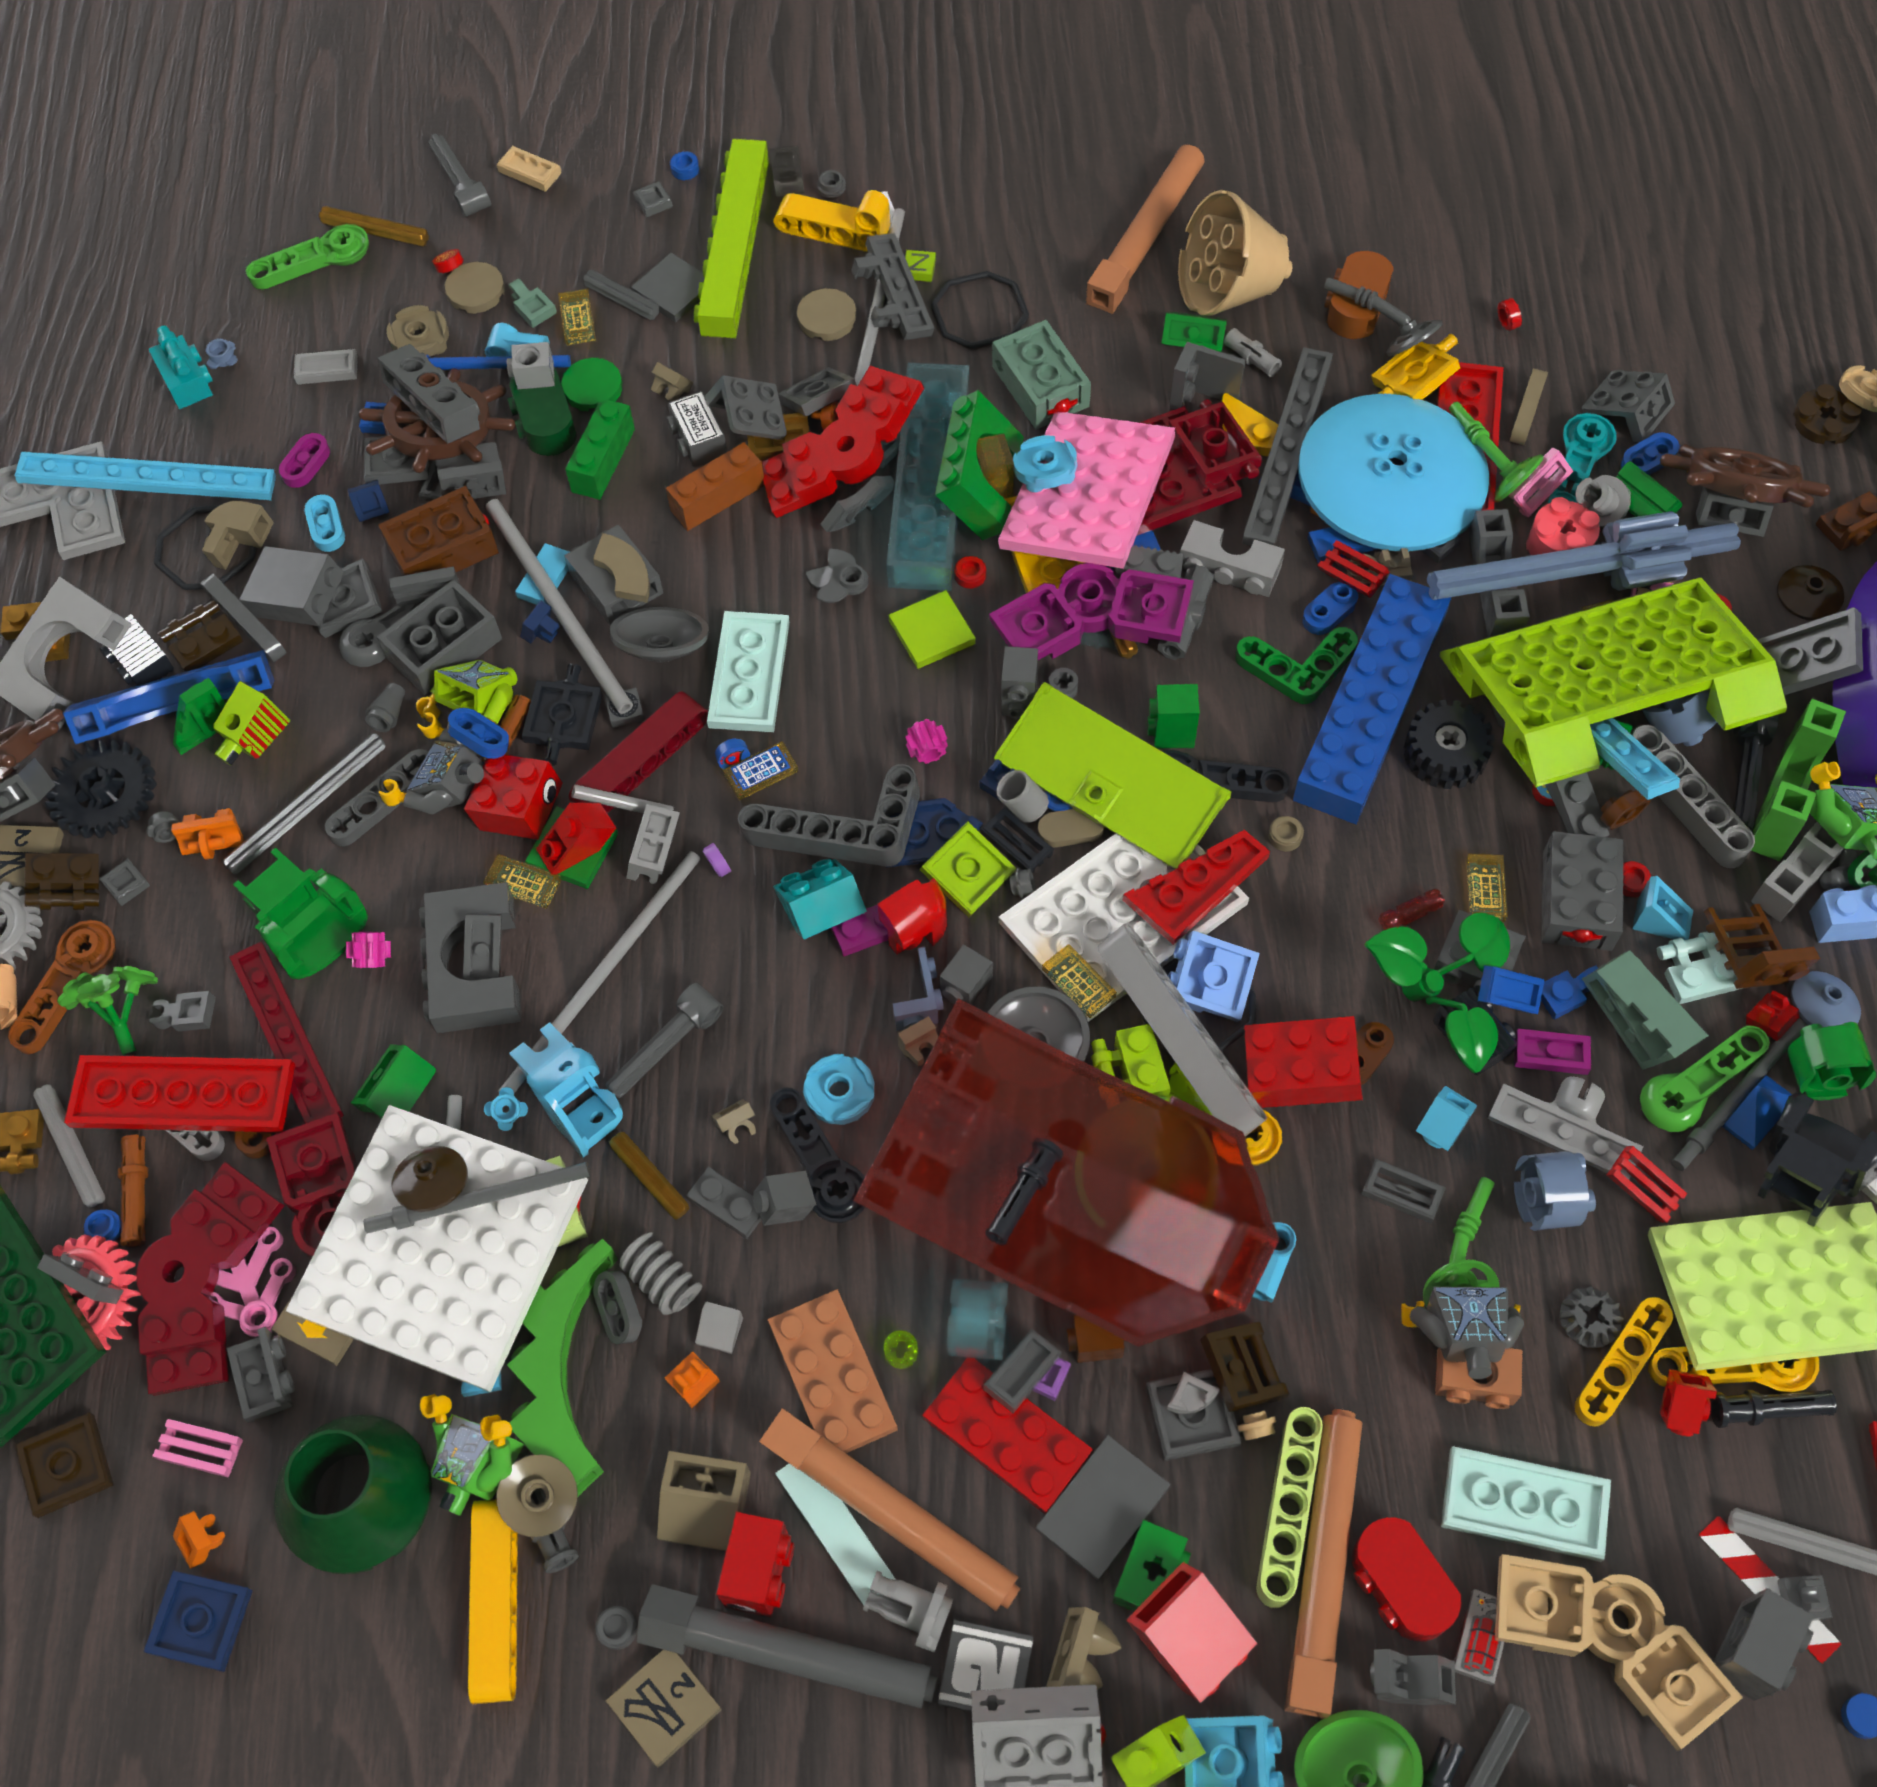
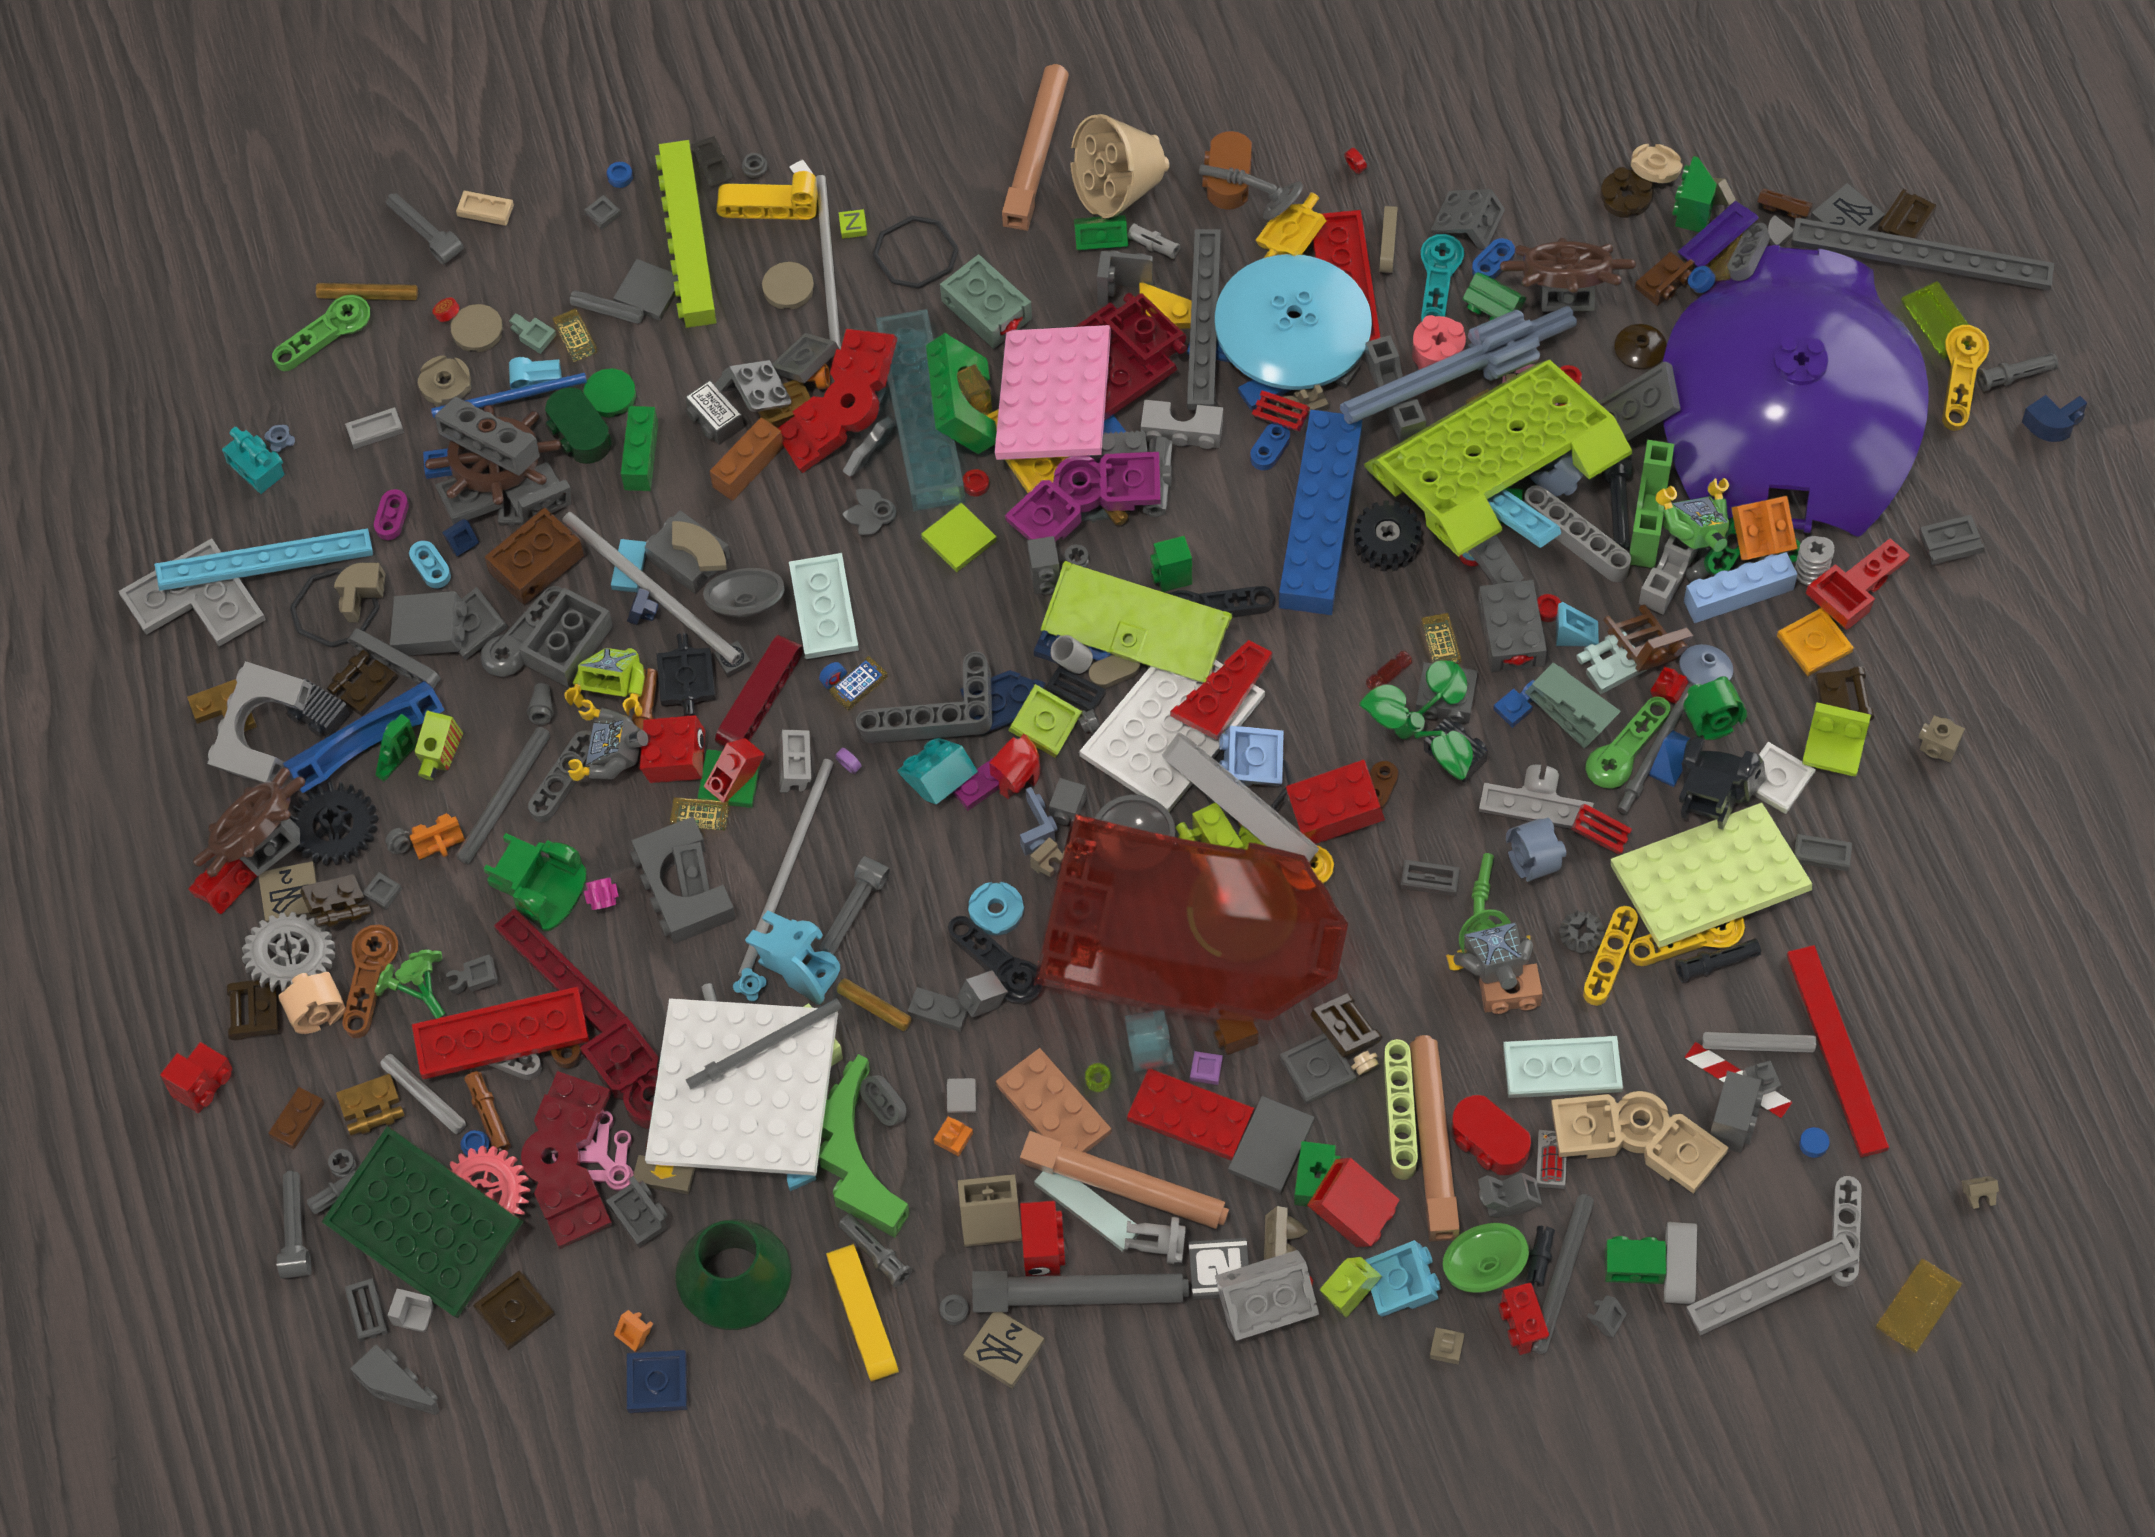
camera: 15 degrees left, 0 degrees up
(92, 1283) = (499, 1175): dark grey plate -> none
(169, 1439) = (608, 1263): bright pink tile -> none
(394, 1081) = (655, 985): green panel -> none
(420, 586) = (537, 598): dark grey tile -> none
(435, 1188) = (724, 1039): dark brown dish -> none
(468, 1453) = (814, 1222): torso -> none
(478, 733) = (633, 706): blue plate -> none
(516, 1492) = (875, 1220): dark tan dish -> none
(531, 365) = (565, 382): light grey brick -> none
(613, 799) = (753, 733): light grey piece -> none
(657, 1277) = (906, 1071): light grey piece -> none
(668, 378) = (680, 374): dark tan tile -> none
(734, 1116) = (924, 947): dark tan tile -> none
(904, 303) = (853, 263): dark grey hinge -> none
(926, 741) = (983, 629): dark pink gear -> none
(1022, 1370) = (1189, 1067): dark grey tile -> none
(1031, 1176) = (1159, 933): black pin -> none
(1039, 476) = (1016, 392): medium azure plate -> none
(1079, 980) = (1154, 783): clear yellow tile -> none
(1192, 1395) = (1314, 1054): light grey tile -> none
(1277, 1264) = (1350, 952): medium azure piece -> none
(1285, 833) = (1280, 635): dark tan tile -> none
(1298, 674) = (1257, 506): green beam -> none
(1446, 1118) = (1448, 818): medium azure brick -> none
(1511, 989) = (1474, 713): blue tile -> none
(1512, 472) = (1388, 302): bright green dish -> none
(1539, 480) = (1409, 302): bright pink tile -> none
(1552, 1051) = (1515, 751): magenta plate -> none
(1614, 498) = (1463, 307): light grey piece -> none
(1623, 809) = (1528, 557): reddish brown plate -> none
(1686, 1402) = (1656, 970): red brick -> none

